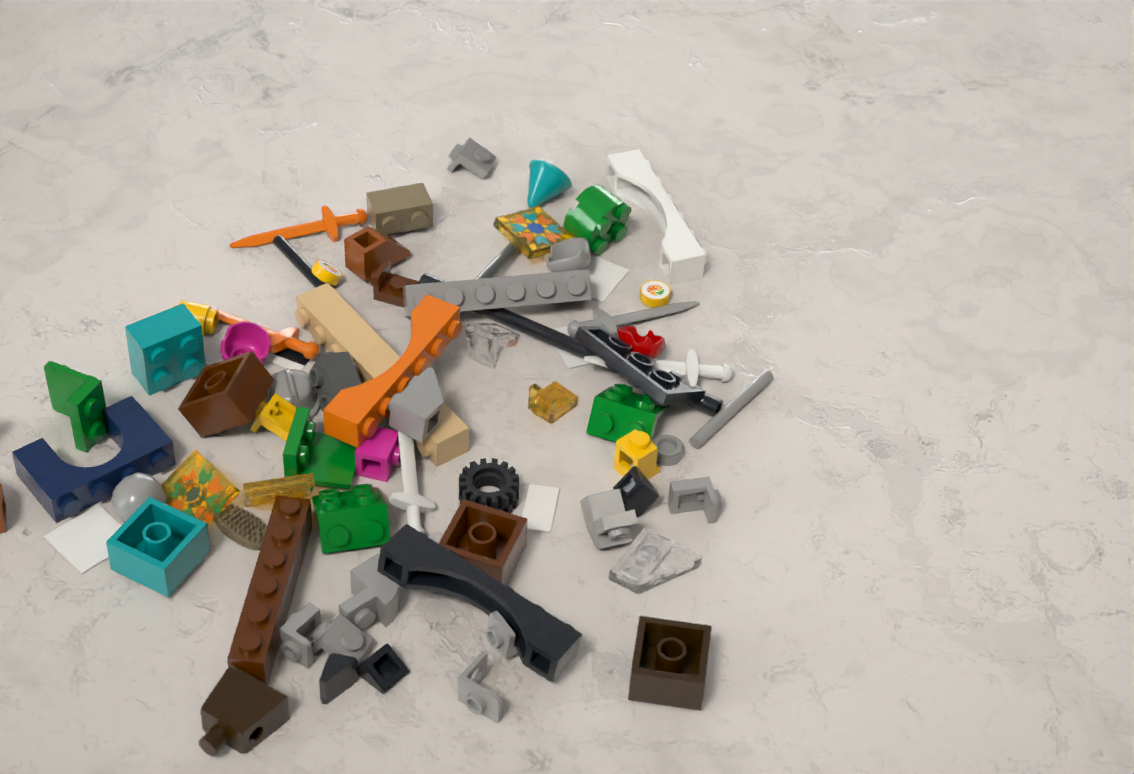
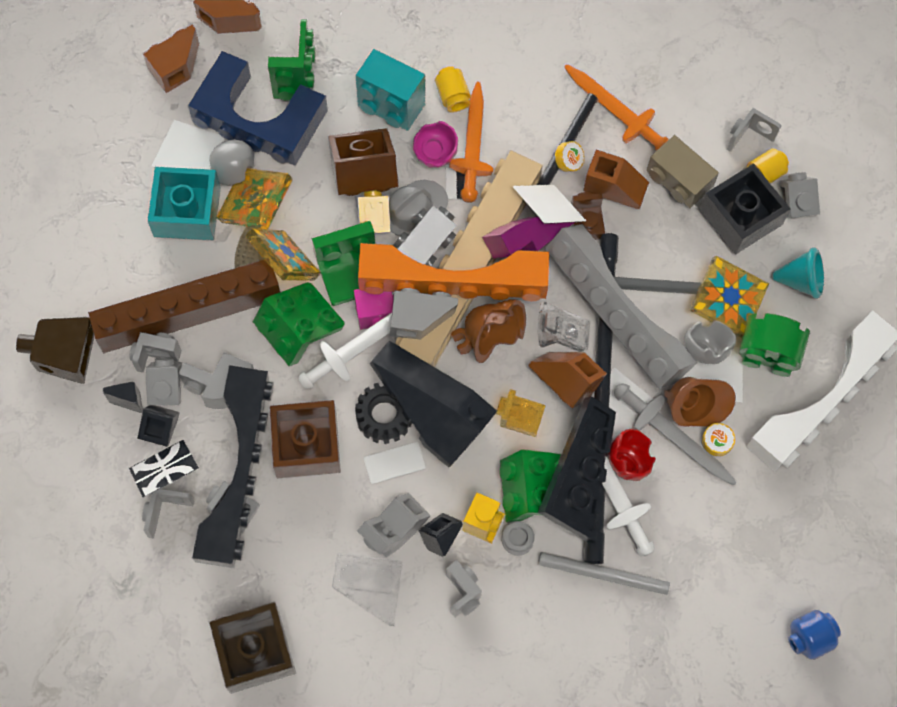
camera: 65 degrees right, 25 degrees up
(372, 289) = (549, 203): none -> white sticker
(385, 163) = (752, 121): none -> light grey bracket
(389, 317) = (521, 235): none -> magenta slope
(433, 166) = (771, 164): none -> yellow brick
(437, 671) = (163, 468): none -> sticker
(458, 379) = (491, 326): none -> dark orange helmet
(464, 188) = (744, 208): none -> black brick
(518, 433) = (438, 405): none -> black wedge
(540, 347) = (569, 375): none -> dark orange slope
(615, 285) = (700, 401): none -> dark orange piece
(856, 304) = (814, 634): none -> blue head

